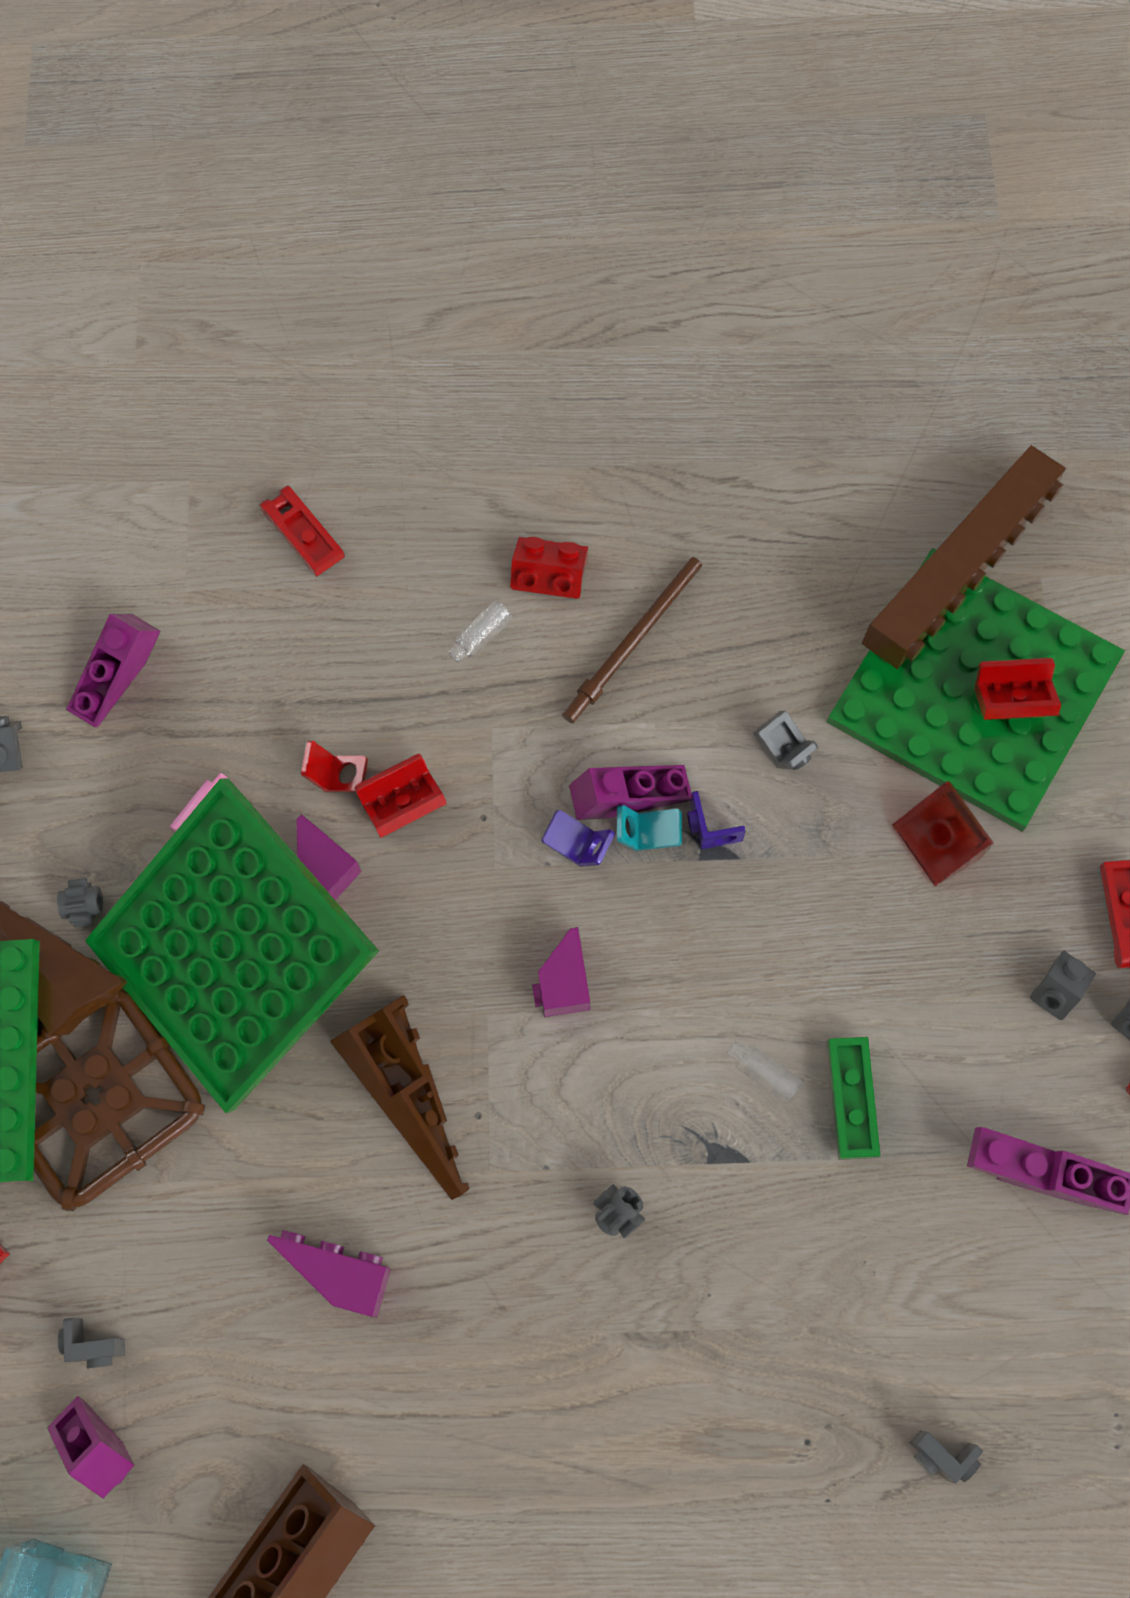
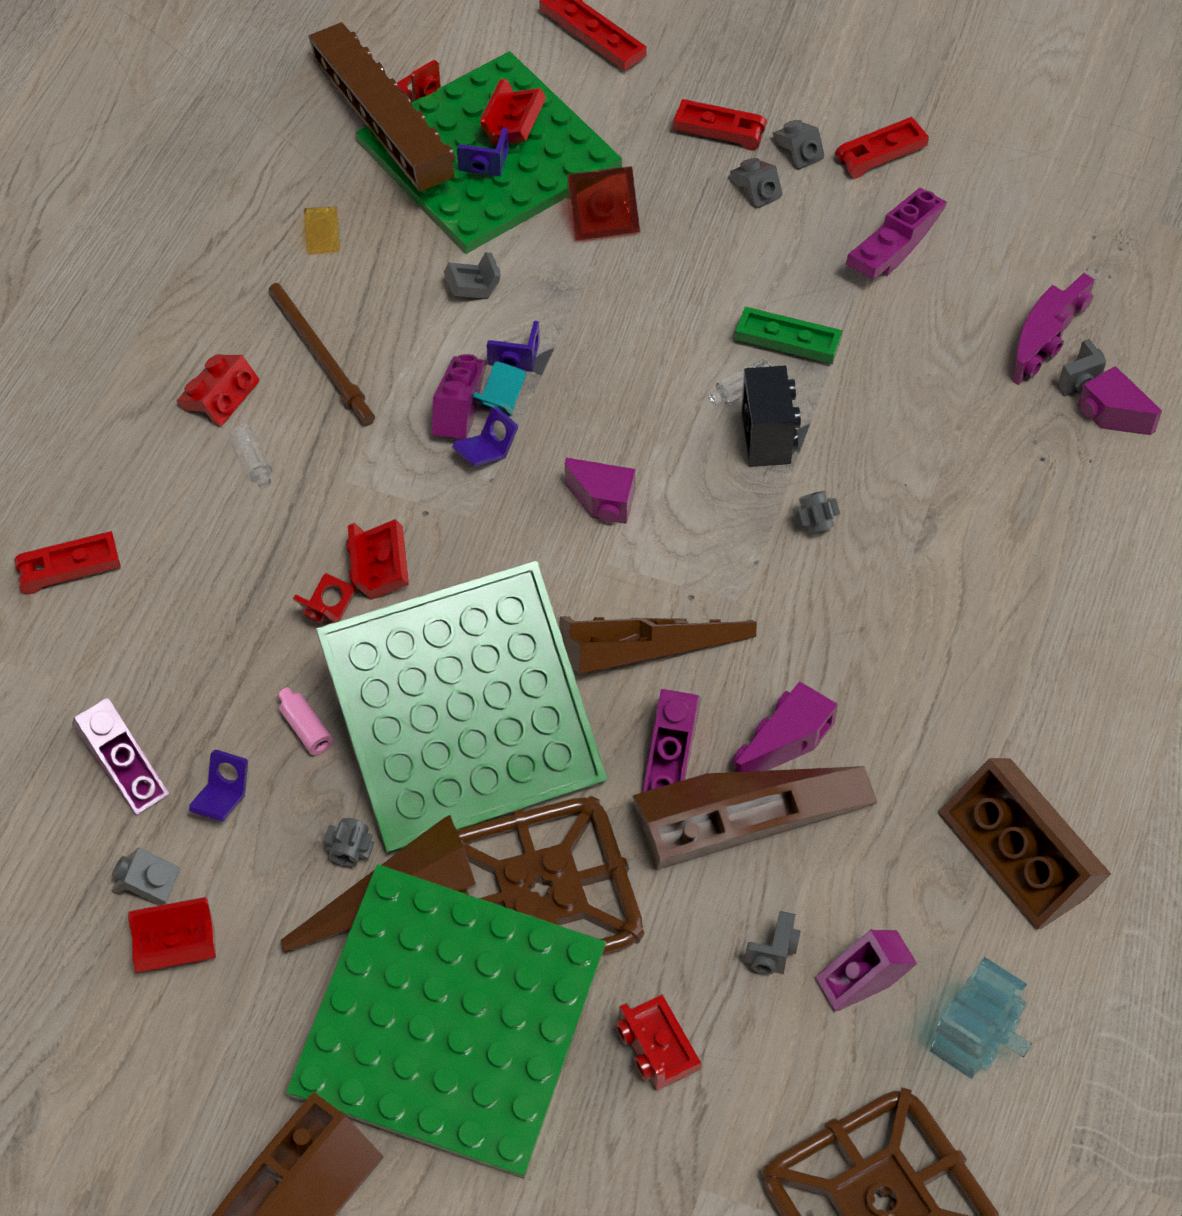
camera: 70 degrees left, 15 degrees down
(98, 769) = (220, 794): none -> dark purple bracket
(227, 1261) = (741, 807): none -> reddish brown wedge
(284, 1161) = (672, 738): none -> magenta slope
(715, 1116) = (769, 415): none -> black brick
(790, 569) = (322, 229): none -> clear yellow bracket
(911, 1512) = (1118, 404): none -> magenta slope
(934, 688) = (484, 160): none -> dark purple bracket
(979, 1389) = (1046, 323): none -> magenta slope
(1030, 584) = (424, 81): none -> red bracket

